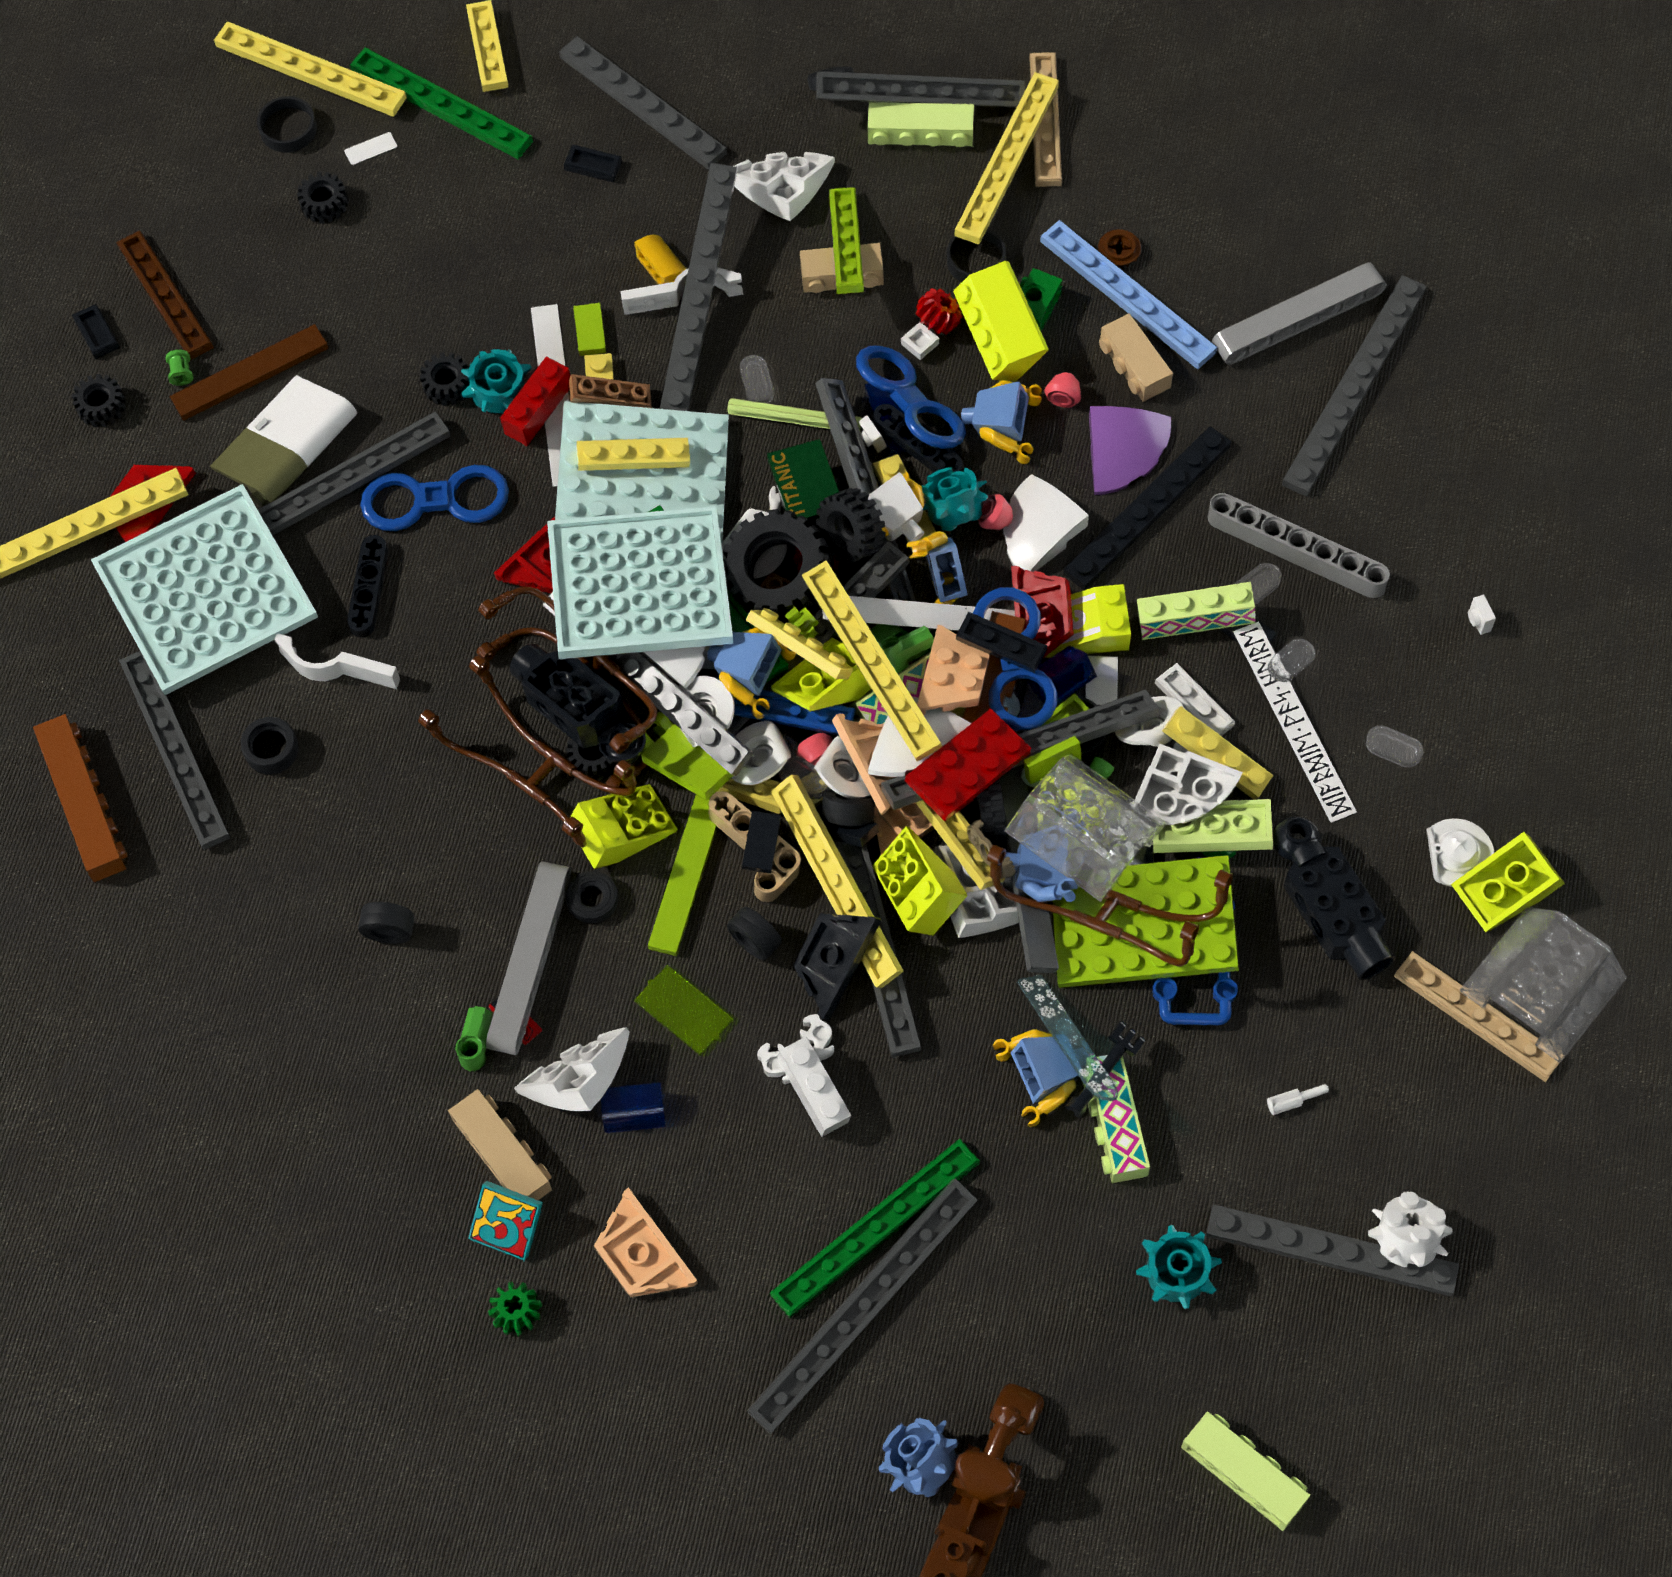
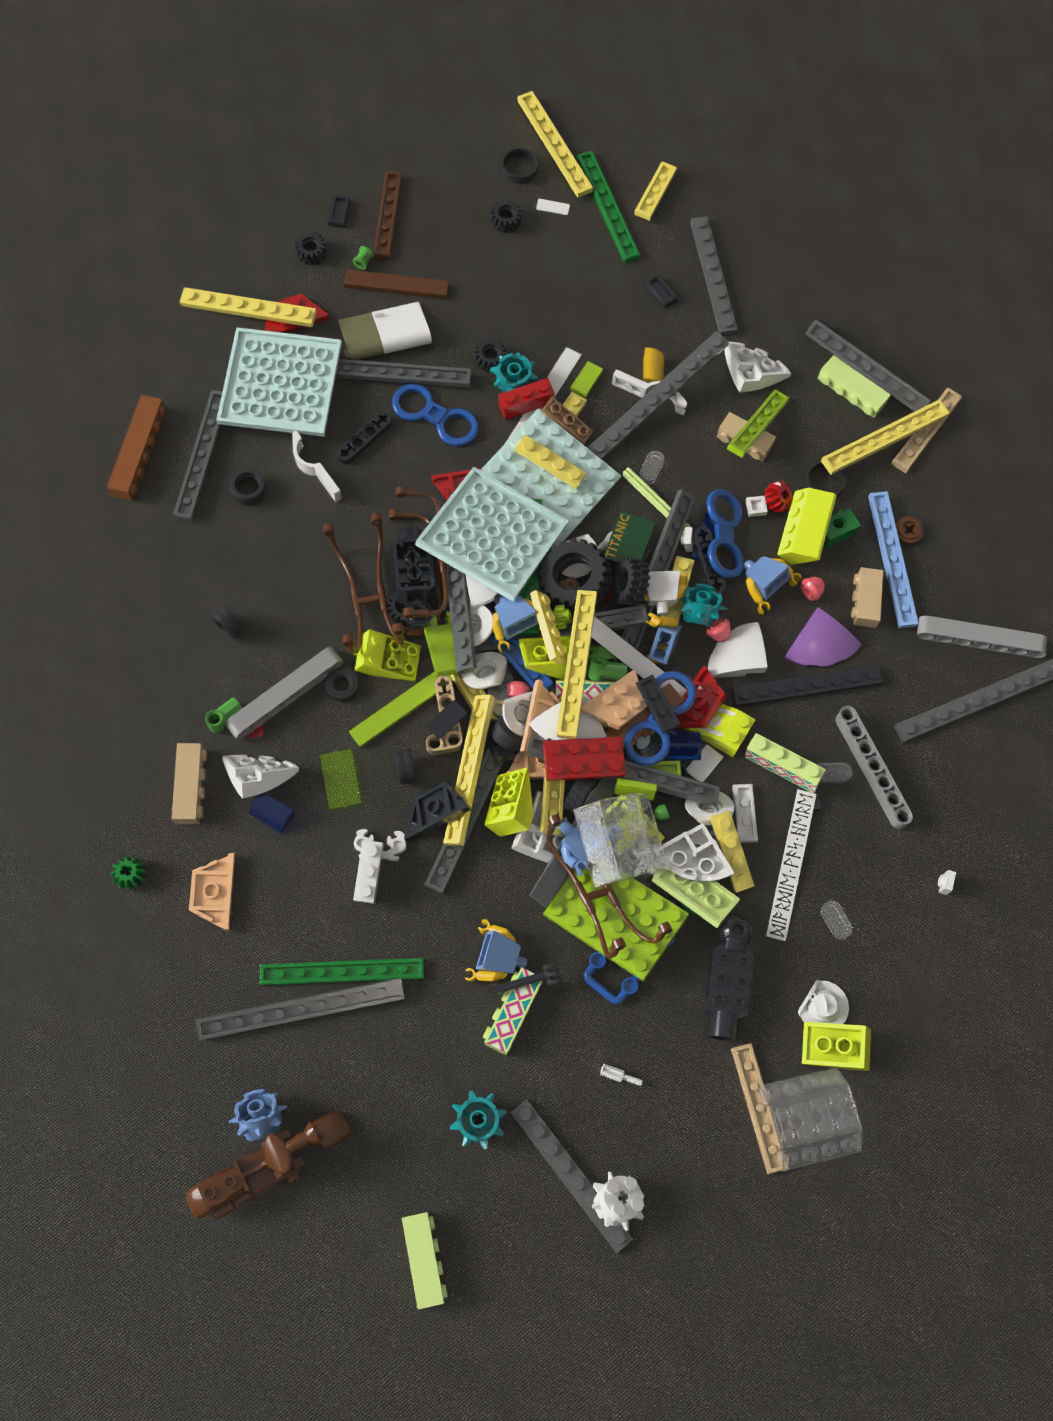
camera: 30 degrees right, 5 degrees up
(505, 1220) = (159, 823): tile -> none
(979, 840) = (559, 831): dark tan piece -> none
(1068, 1038) = (520, 949): clear light blue piece -> none
(1291, 660) = (817, 829): clear tile -> none

